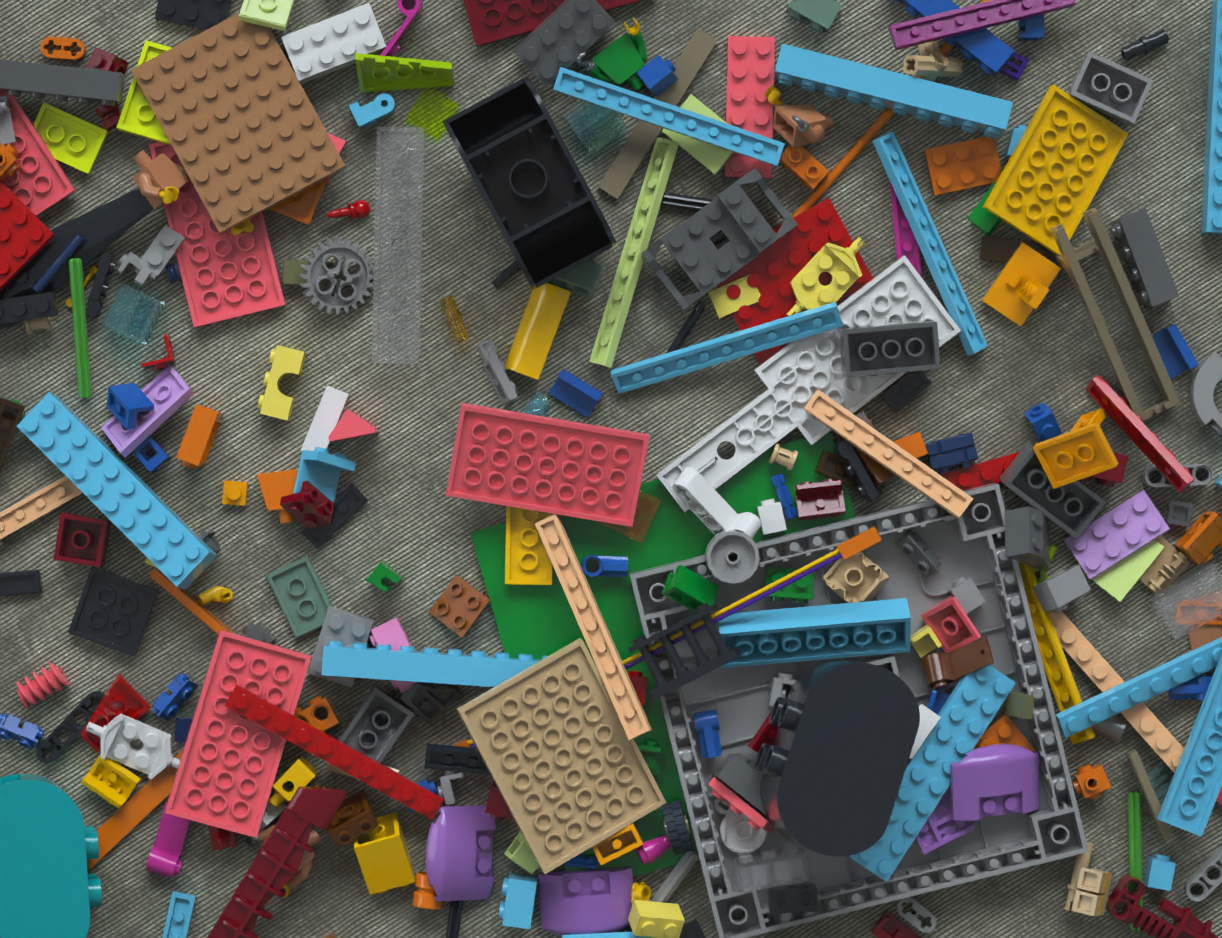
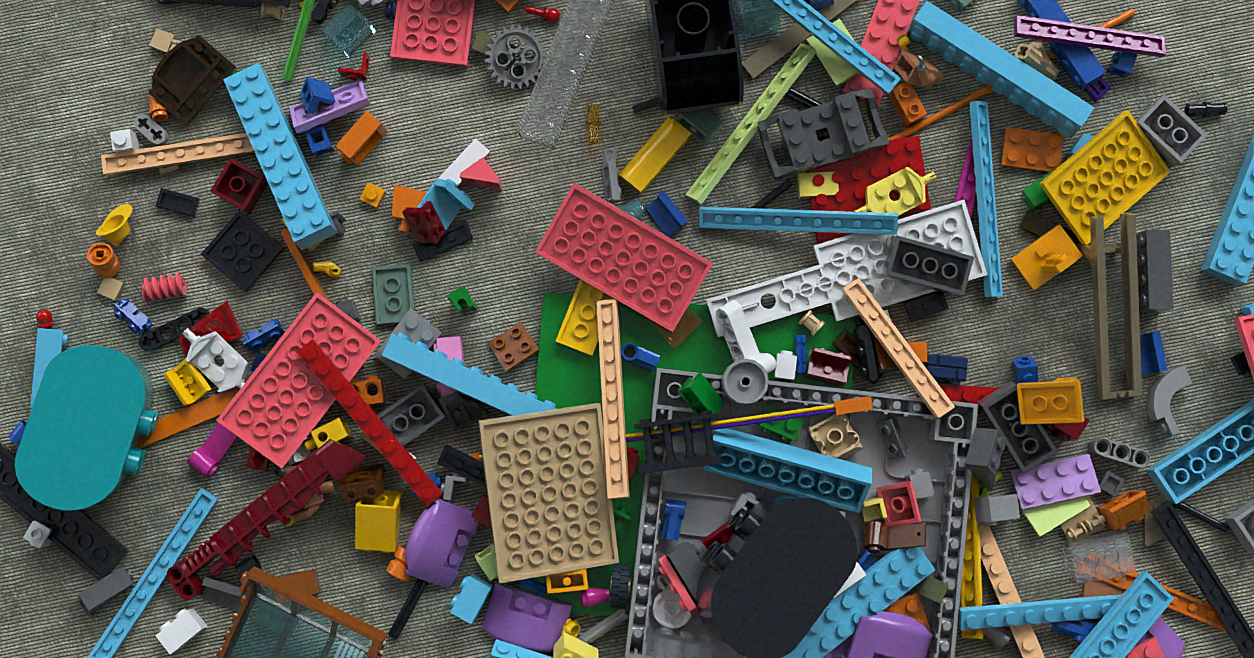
camera: 20 degrees right, 5 degrees down
(284, 362) = (449, 109): light yellow arch -> none
(1137, 431) = (1102, 408): red plate -> none

